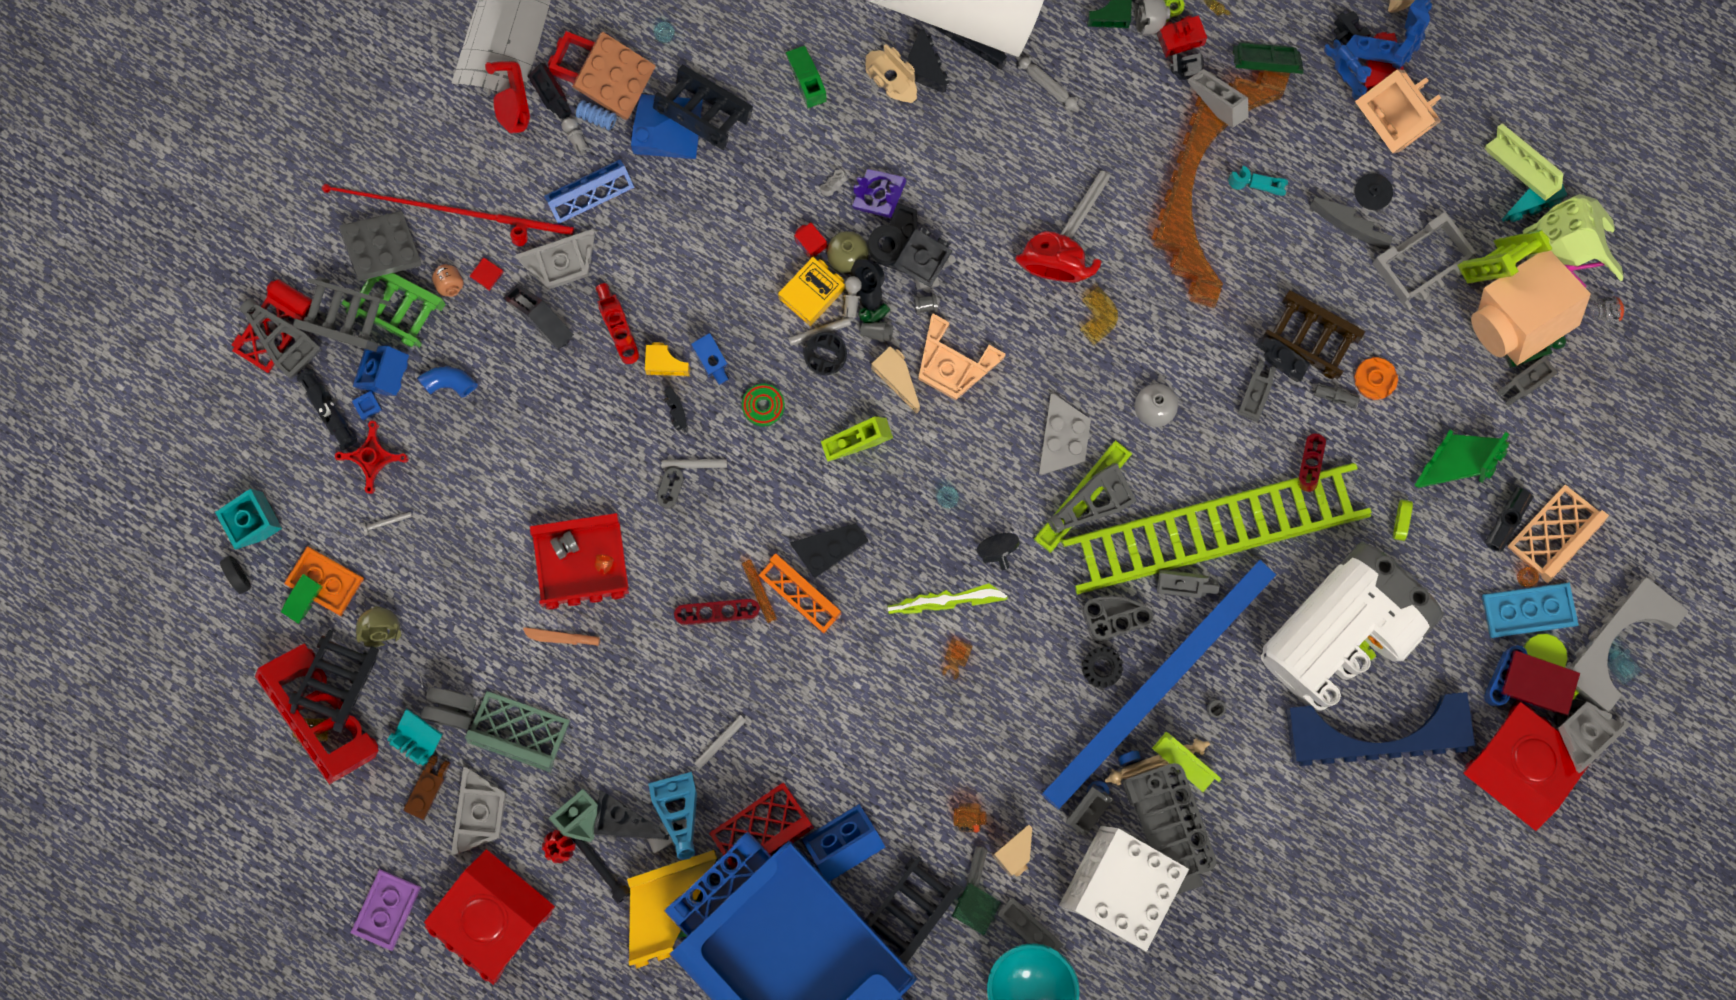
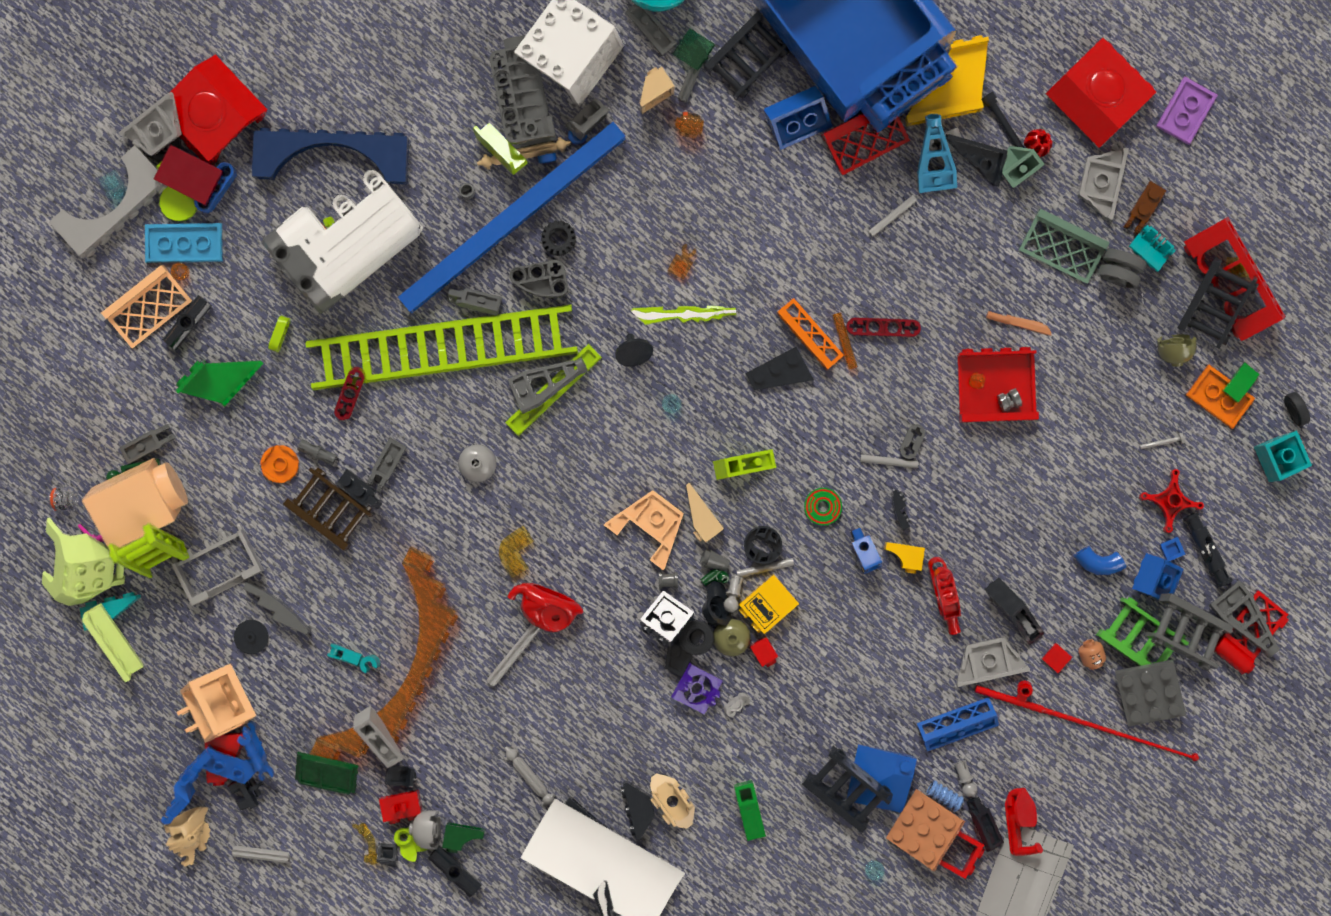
camera: 175 degrees left, 10 degrees up
(1064, 437) = (561, 444): light grey wing -> none

